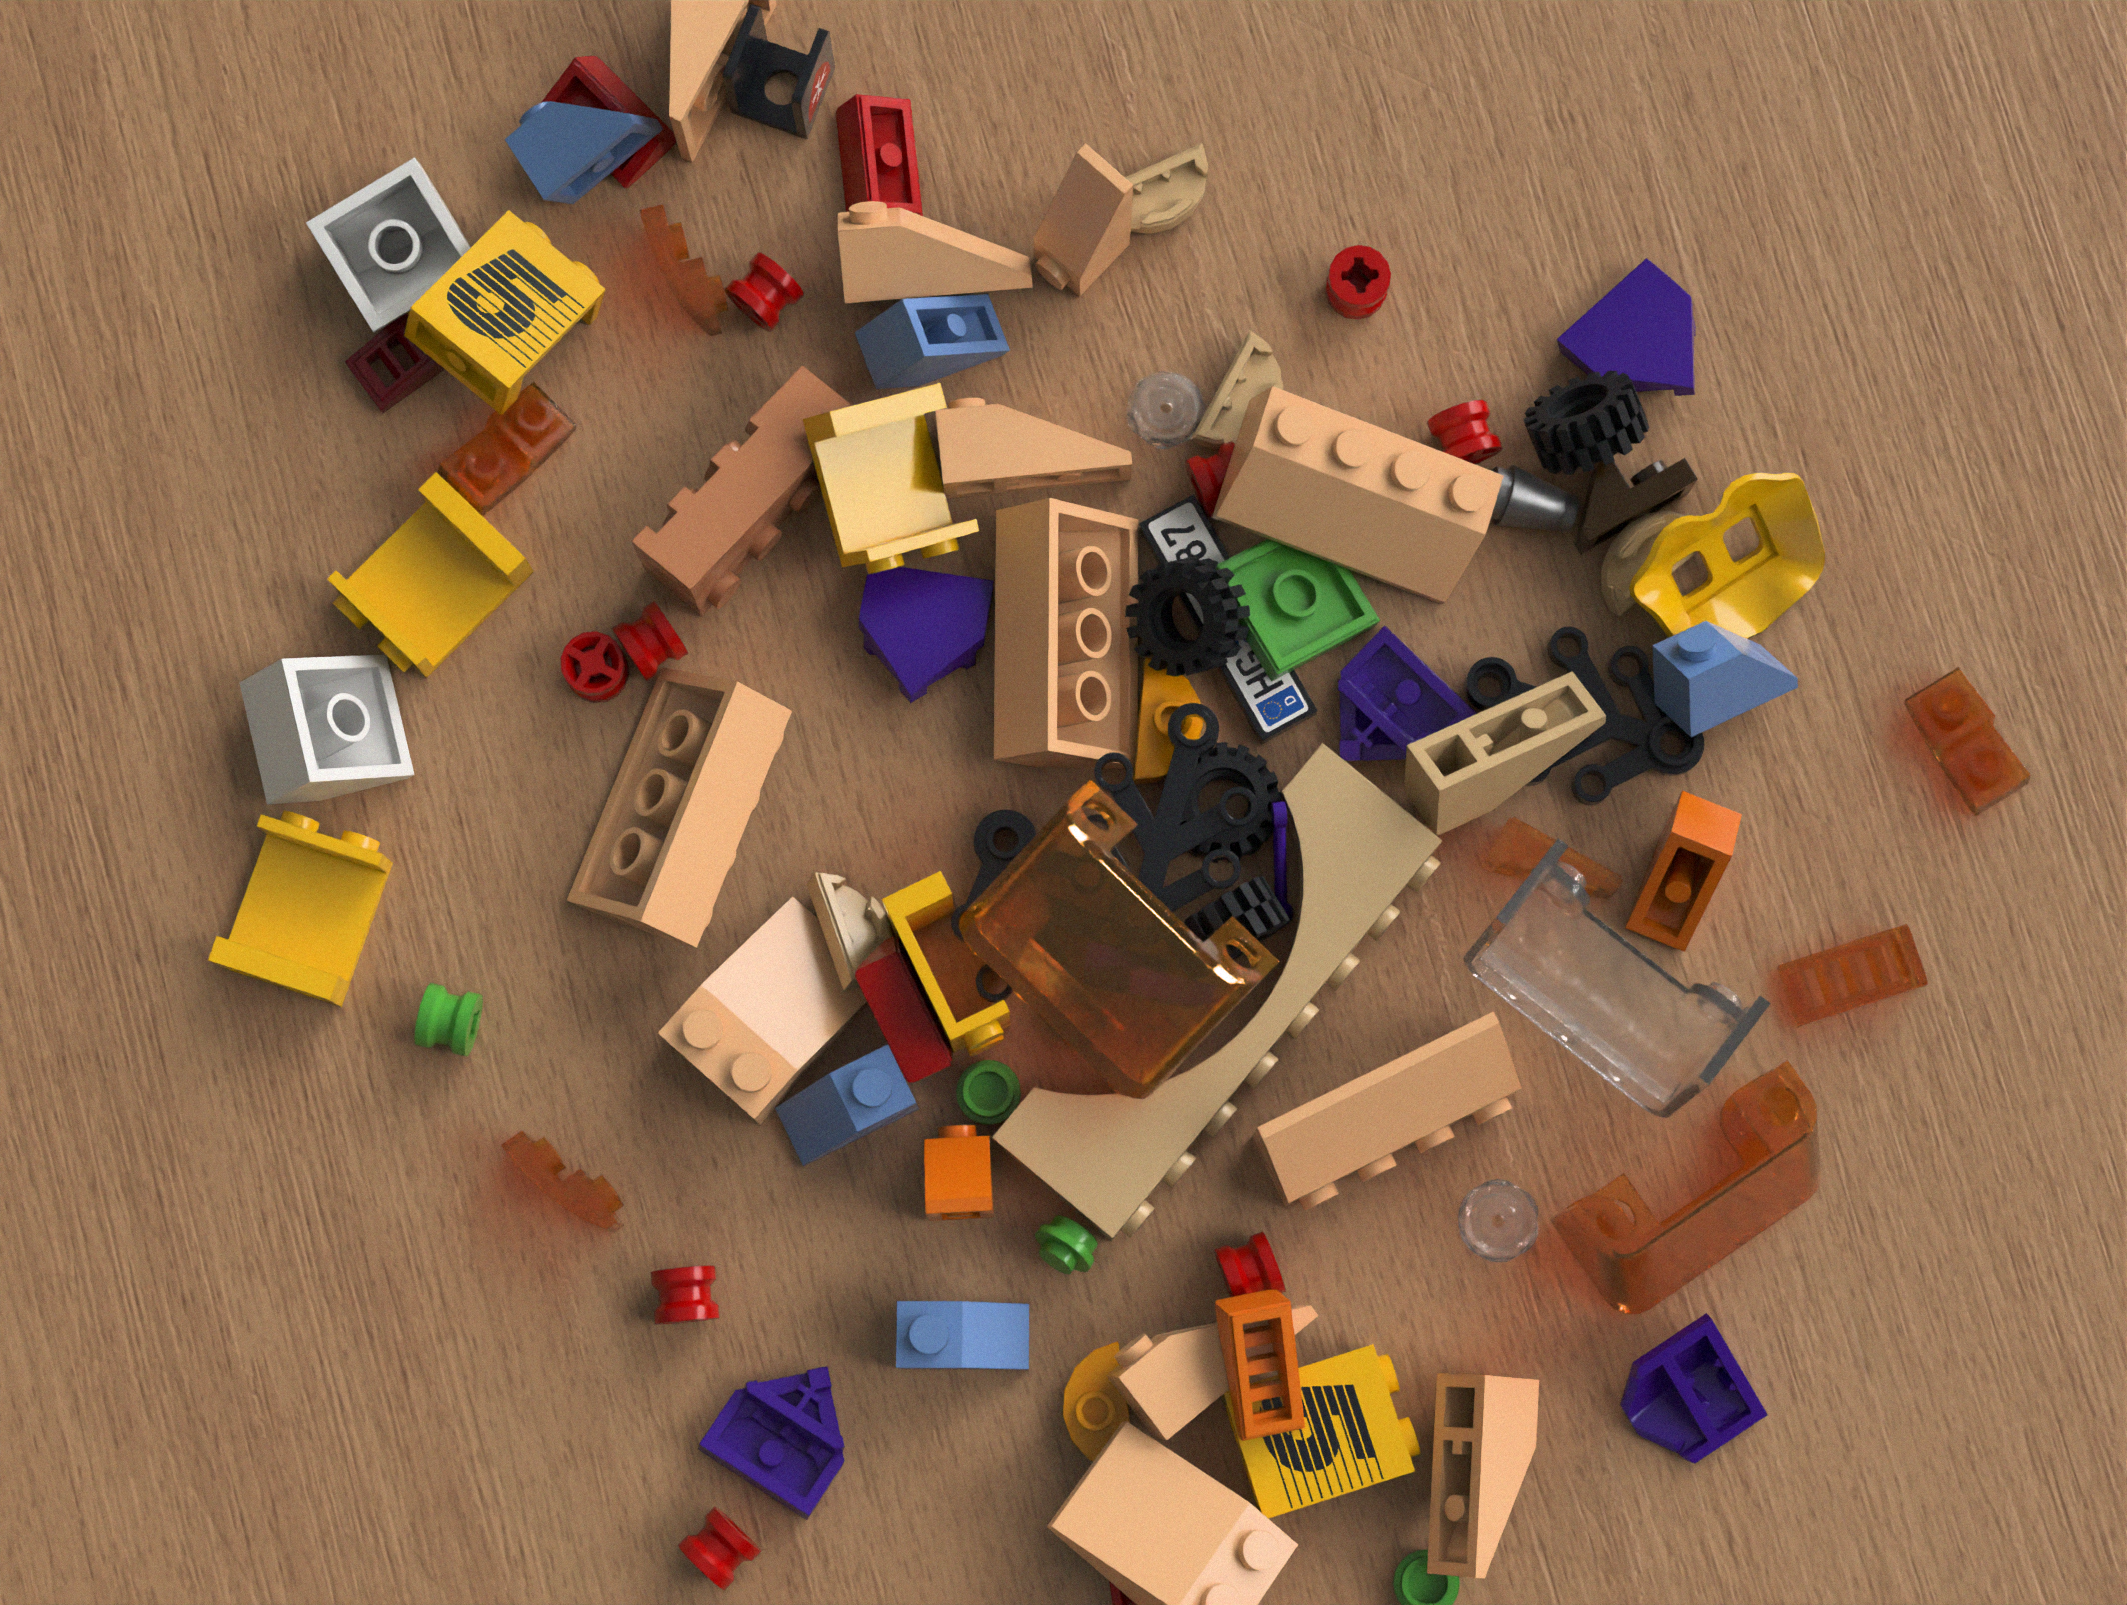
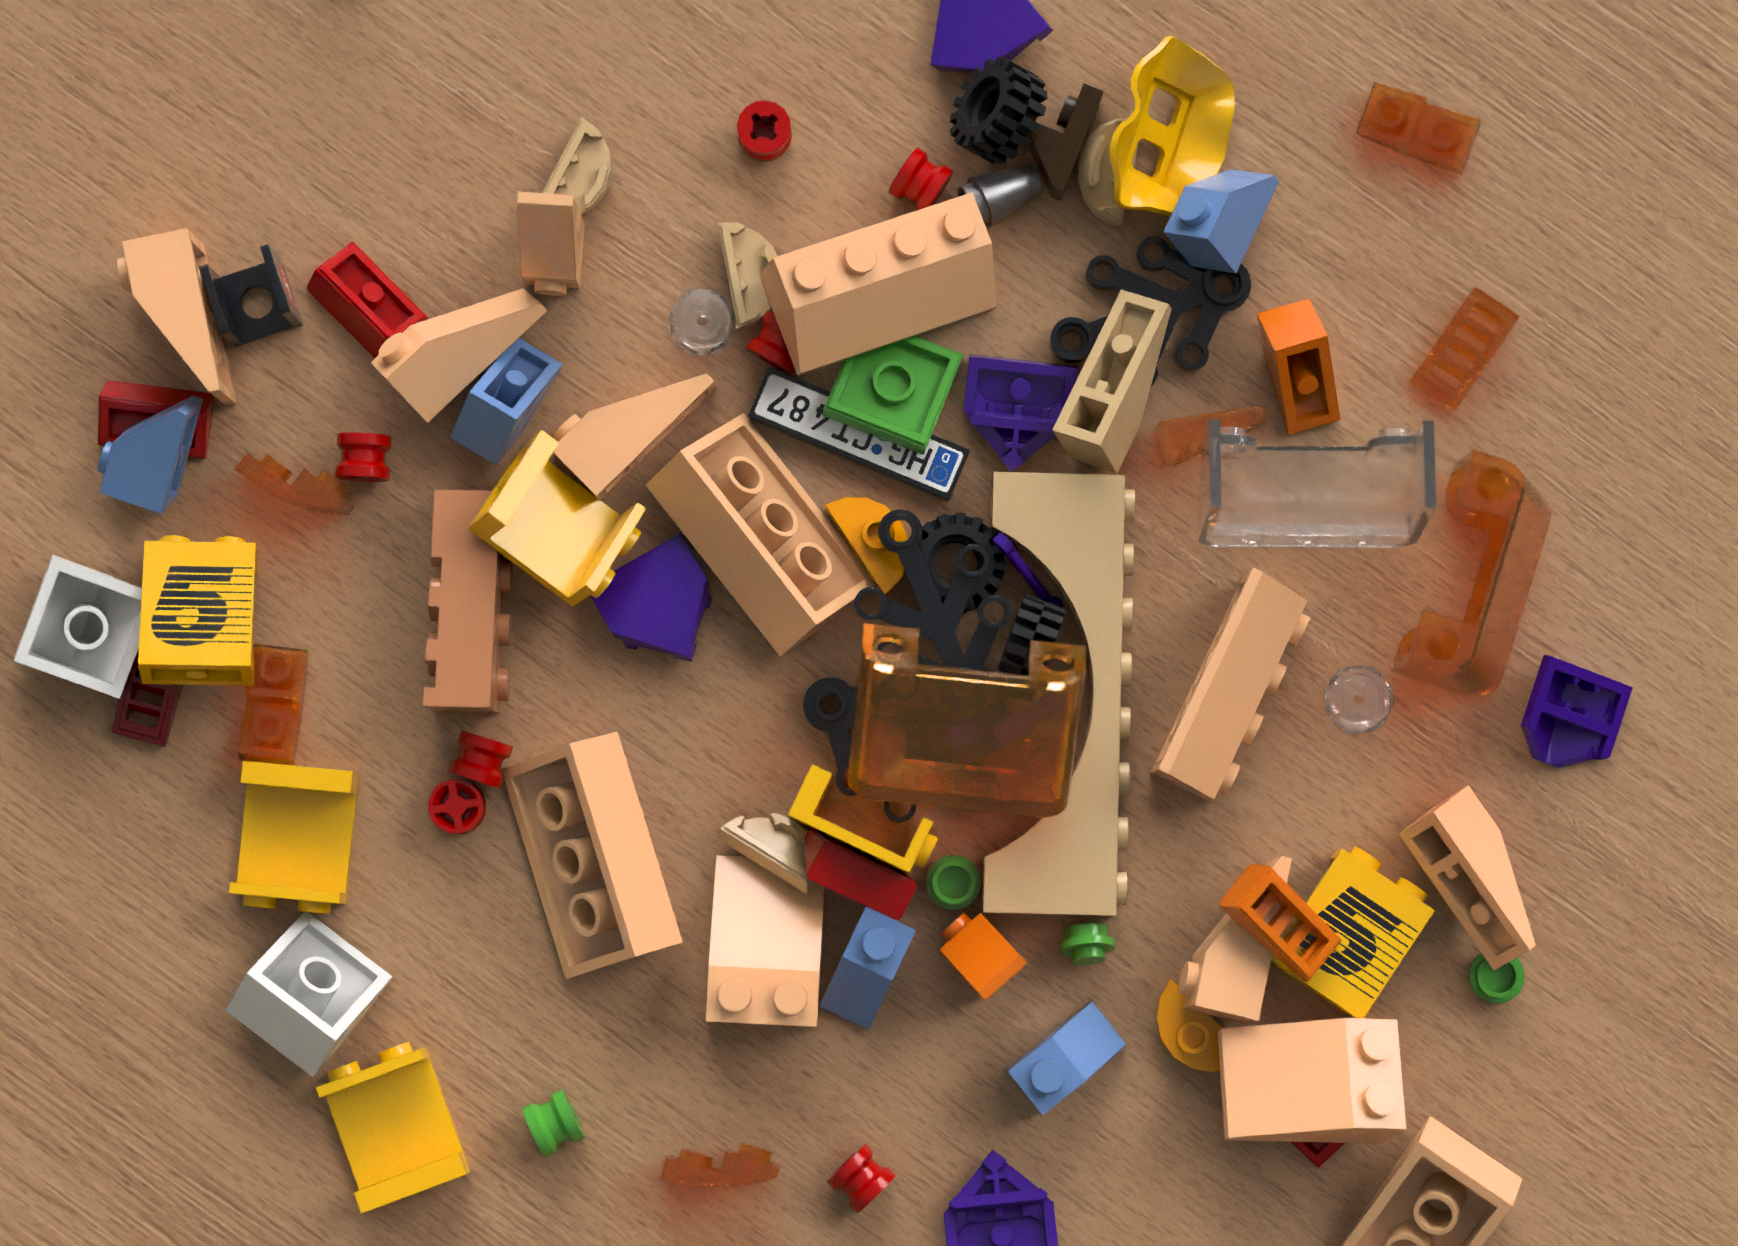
camera: 40 degrees left, 5 degrees up
(1156, 622) = (824, 481): black tyre -> none
(1249, 1267) = (1220, 862): red wheel -> none

